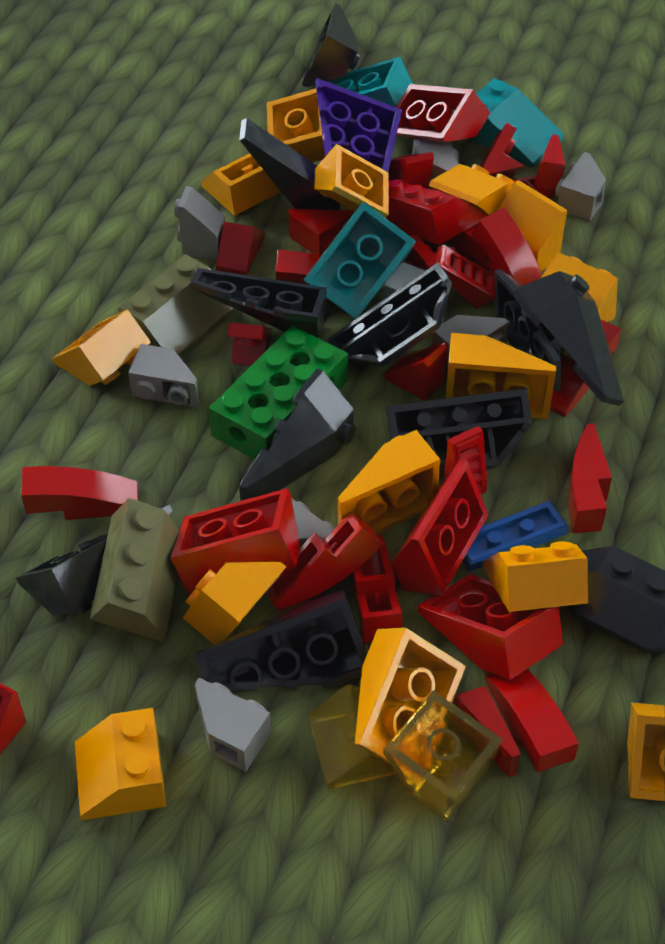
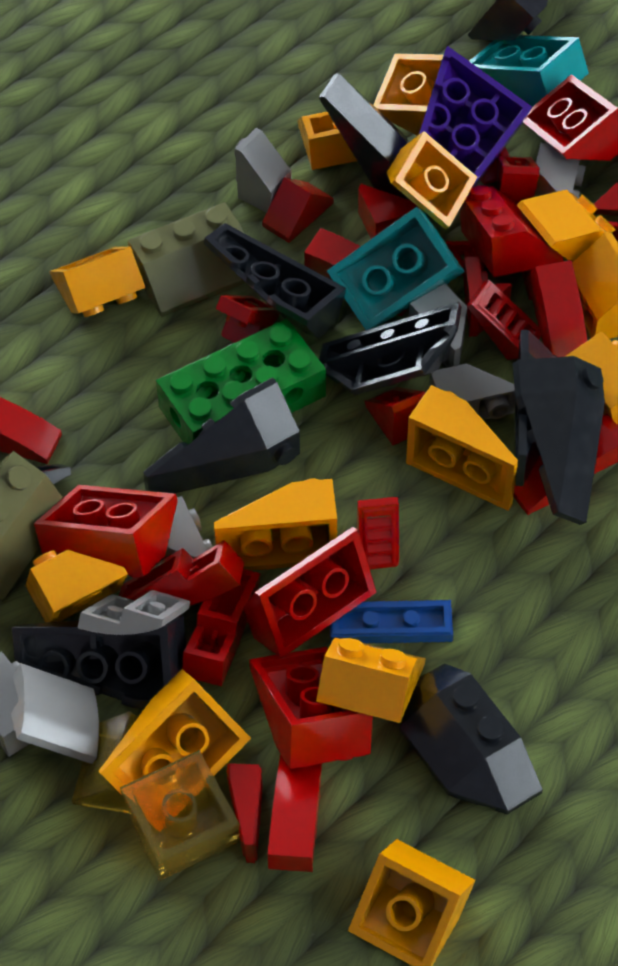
camera: 25 degrees right, 5 degrees up
(163, 377) = (137, 327): light grey slope -> none
(280, 712) = (56, 714): none -> light grey slope
(322, 595) = (125, 616): none -> light grey slope
(500, 415) = (427, 493): black wedge -> none
(588, 484) = (498, 595): red slope -> none

